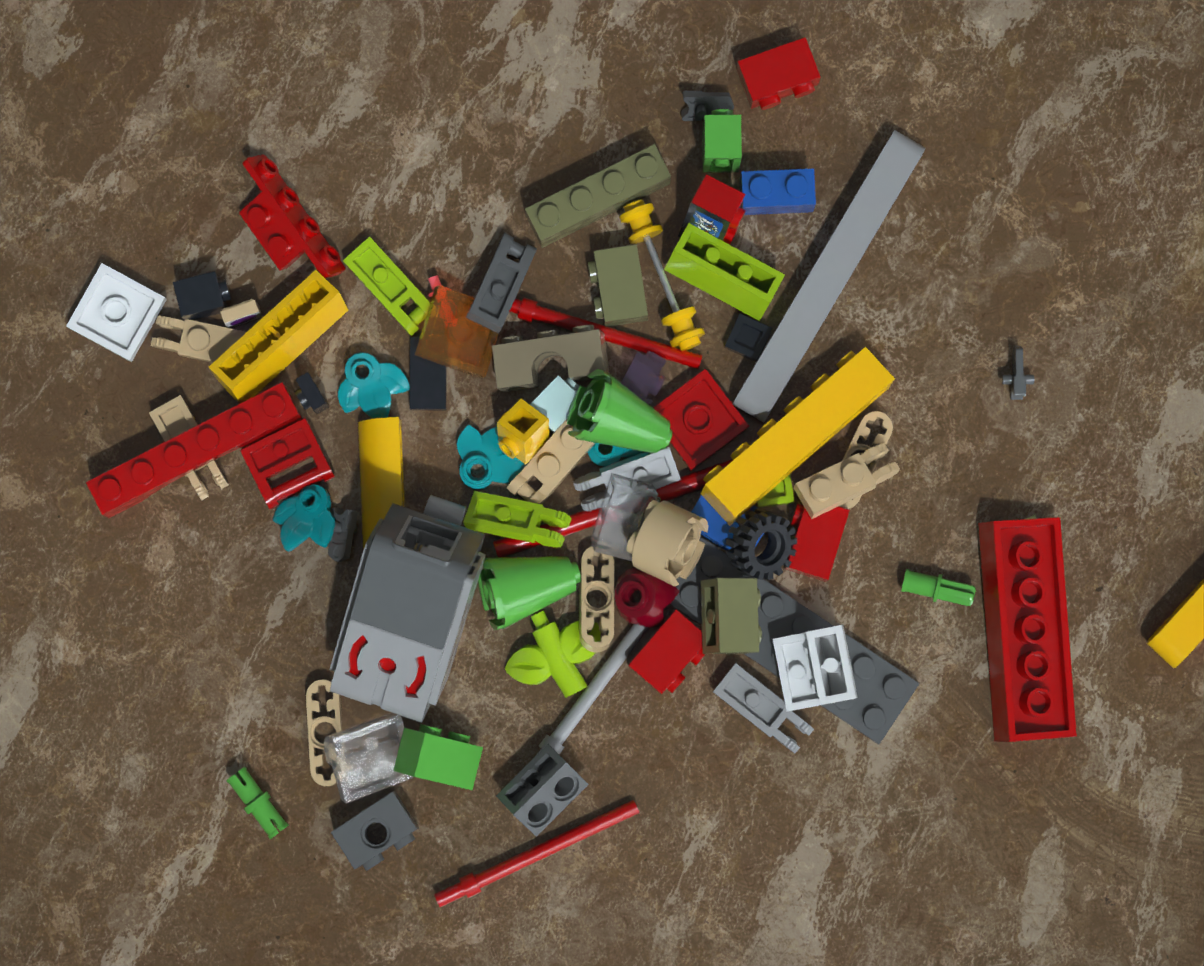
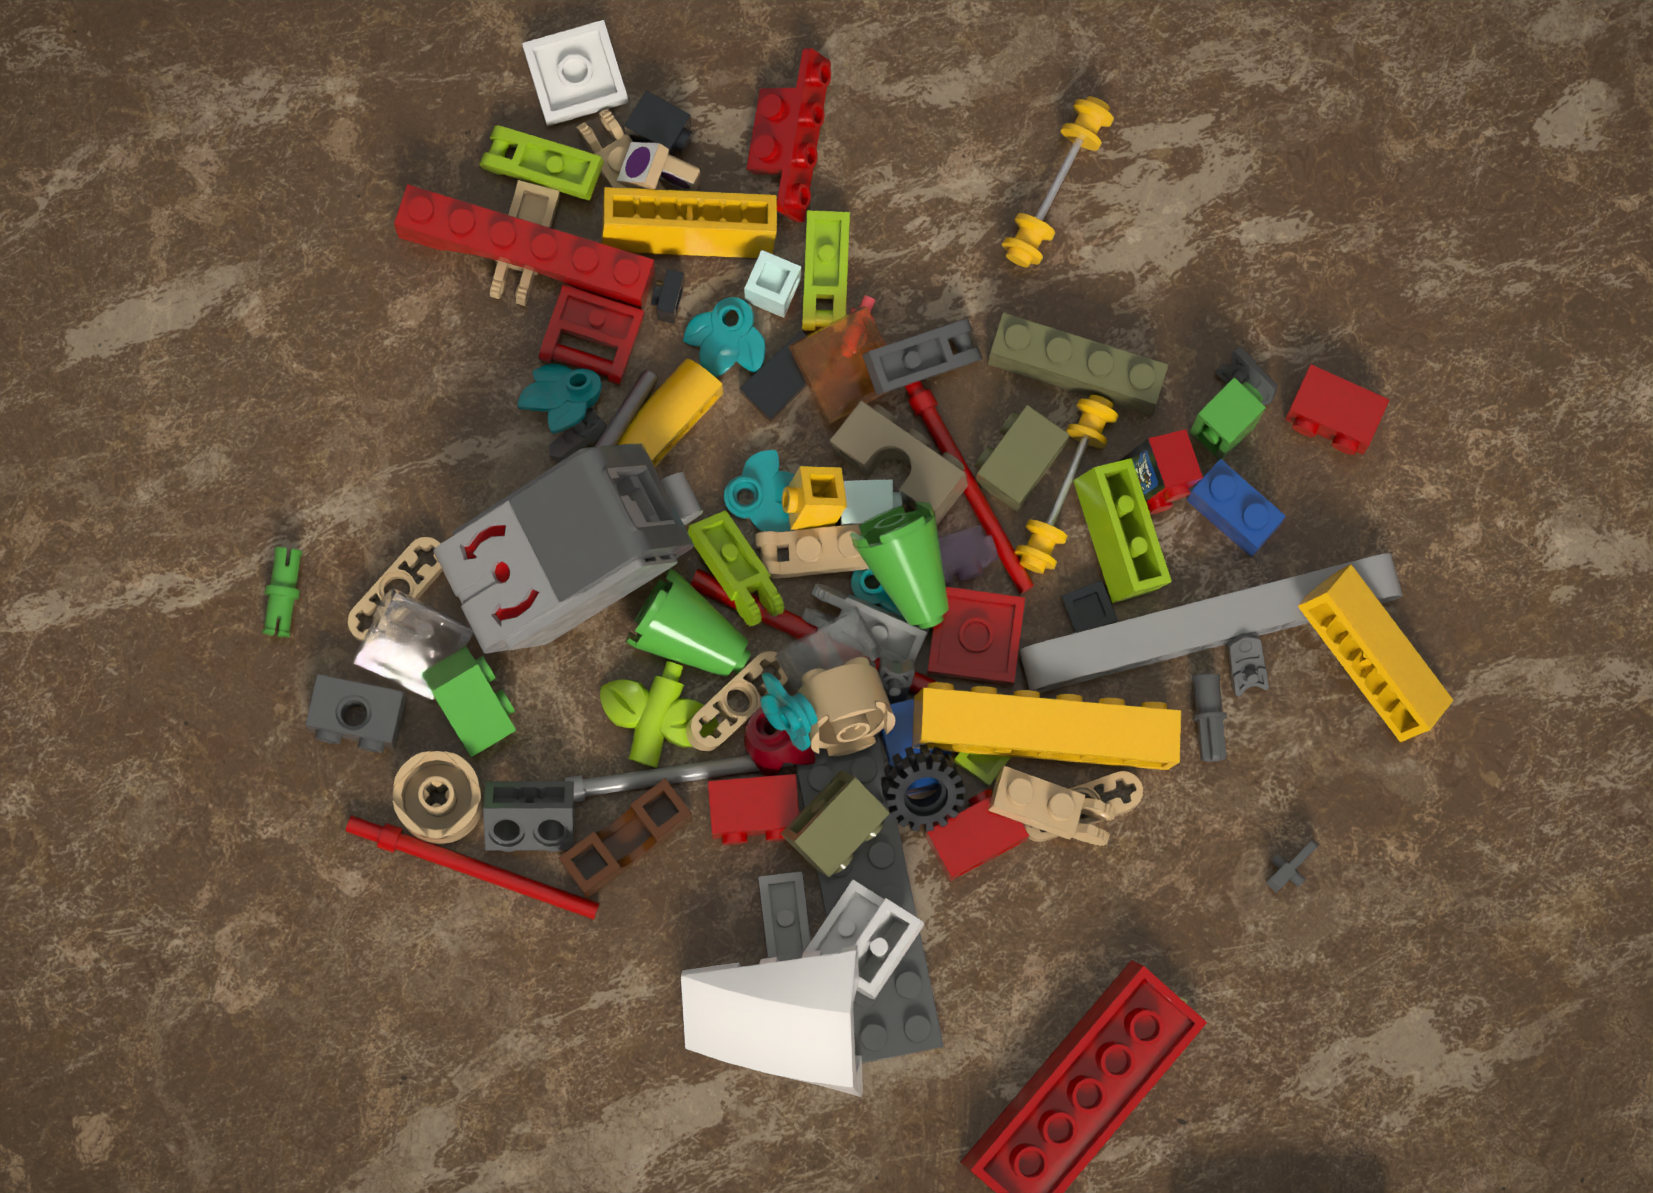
camera: 40 degrees right, 5 degrees down
(152, 387) = (542, 162): none -> lime plate
(217, 330) = (643, 165): none -> tile
(357, 494) = (628, 409): none -> flat silver bar
(367, 325) = (772, 283): none -> light aqua brick
(461, 50) = (1082, 133): none -> yellow axle
(461, 848) = (438, 771): none -> tan brick
(613, 747) = (627, 839): none -> reddish brown arch
(645, 577) = (788, 712): none -> teal plate
(678, 492) = (896, 678): none -> dark grey piece
(810, 764) = (779, 1017): none -> white wedge
(875, 279) = (1247, 663): none -> dark grey piece
(883, 333) = (1209, 717): none -> dark grey axle
(938, 588) = (1040, 980): bright green axle -> none
(946, 199) = (1376, 653): none -> yellow brick

